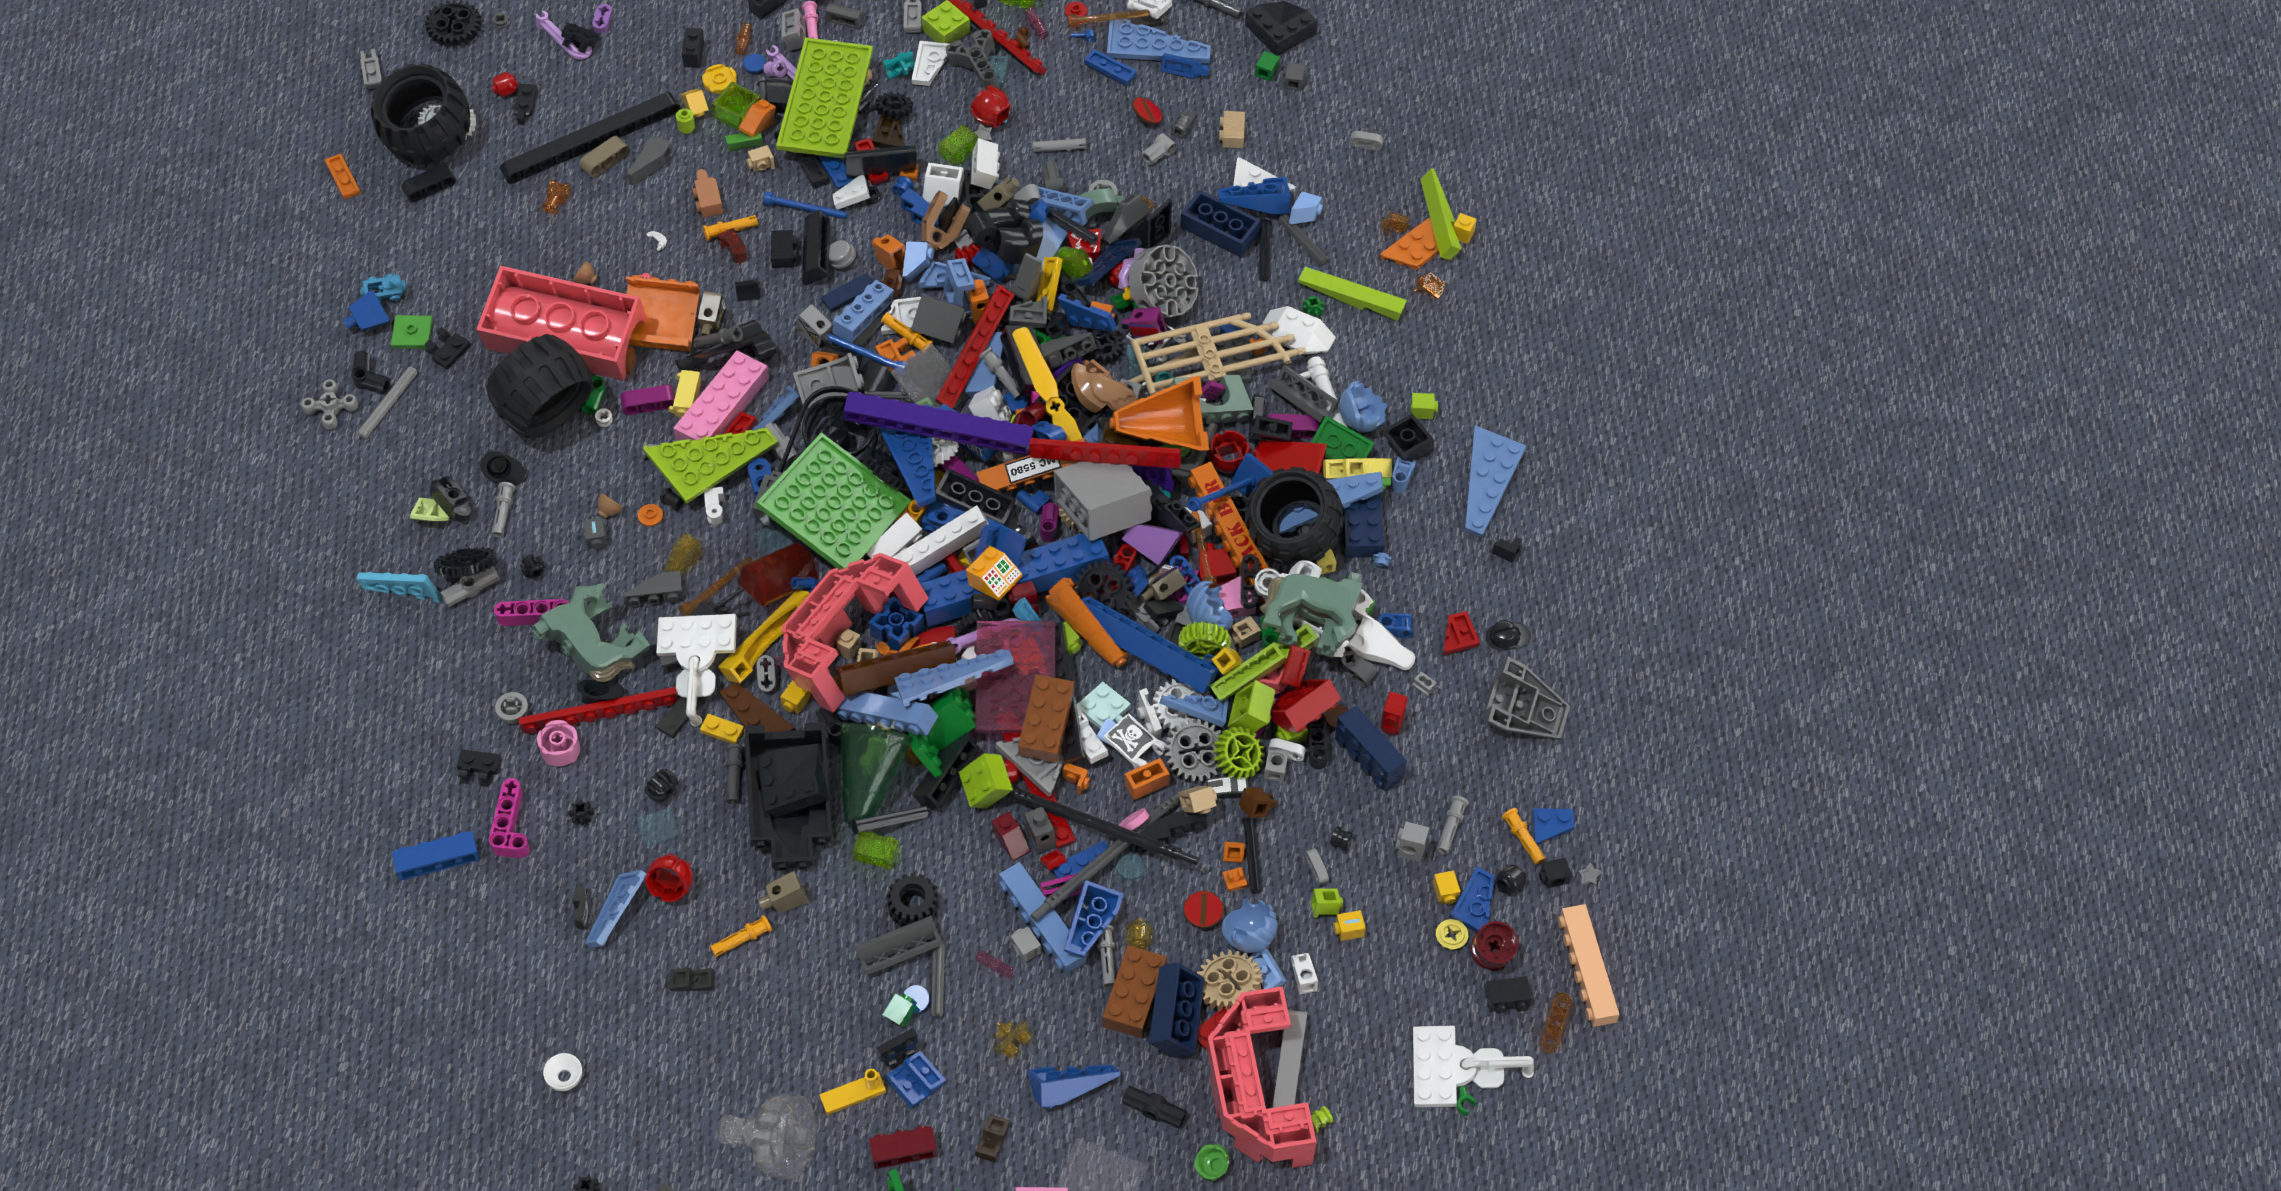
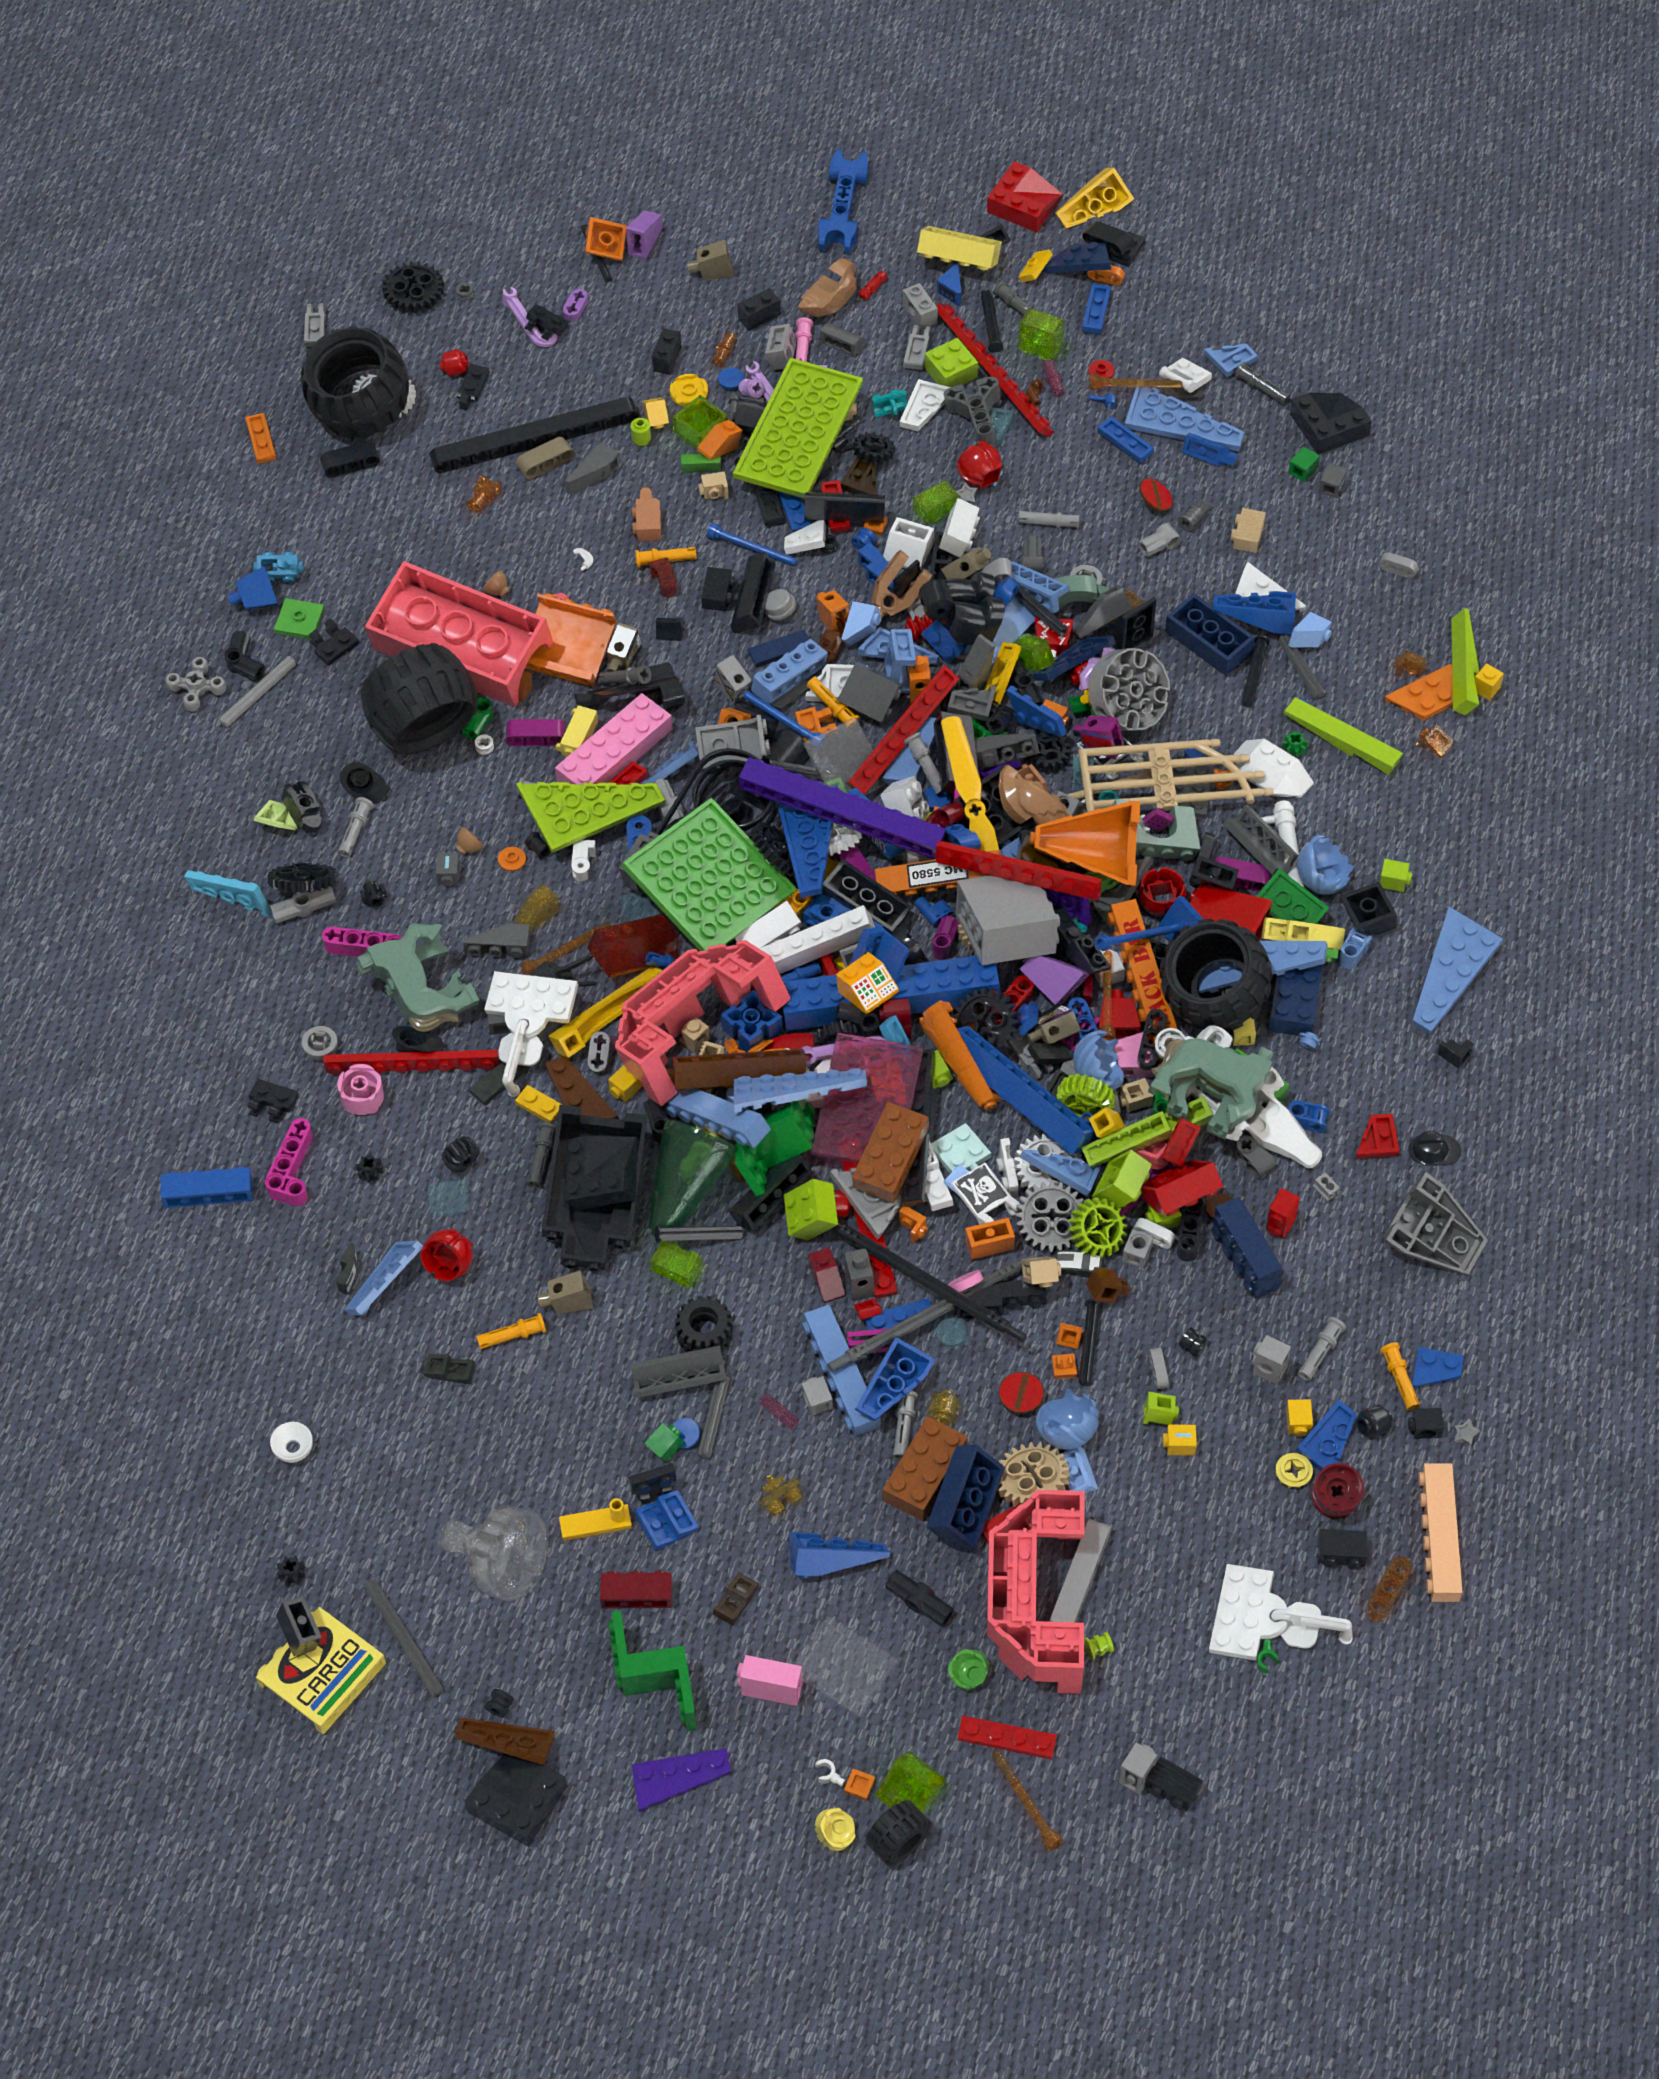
camera: 15 degrees right, 0 degrees up
(1304, 973) = (1118, 1483): white leg -> none

